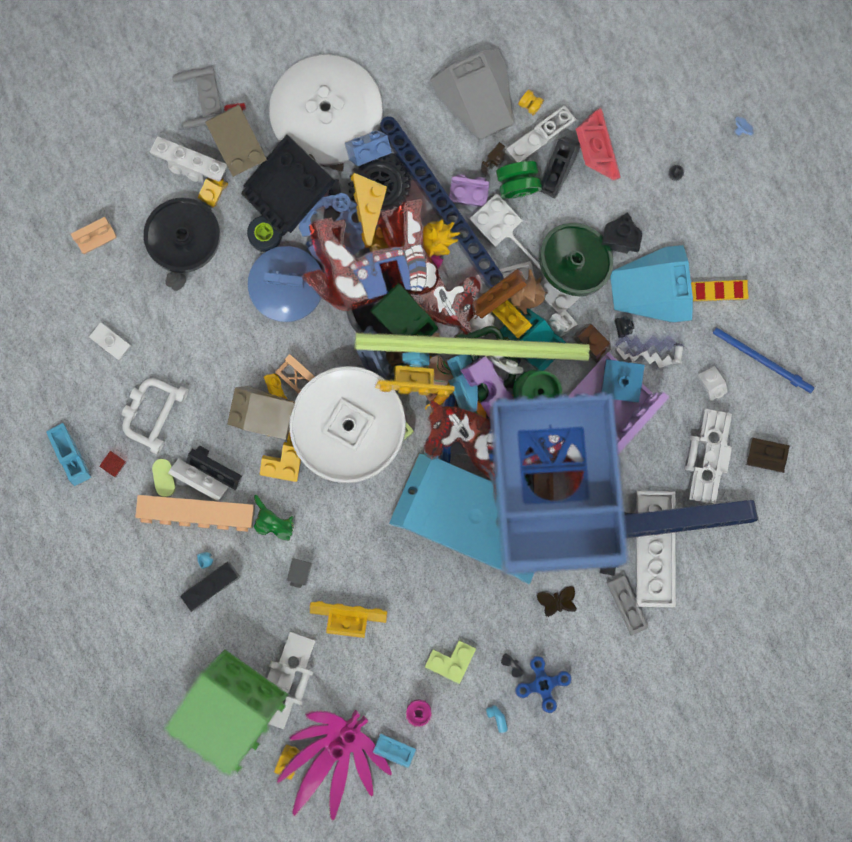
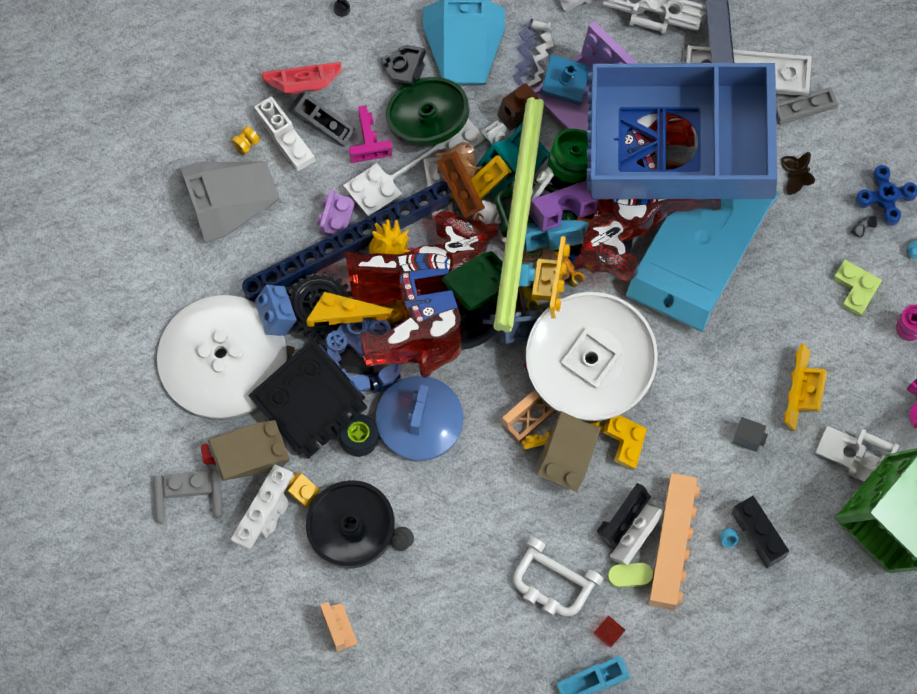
camera: 85 degrees left, 15 degrees down
(110, 341) = (464, 622): white plate -> none
(270, 522) = (690, 461): green animal -> none
(495, 158) = (303, 180): dark brown plate -> none
(518, 179) = (333, 157): green wheel -> none
(545, 211) = (371, 148): none -> dark pink bracket
(624, 326) = (504, 75): black plate -> none

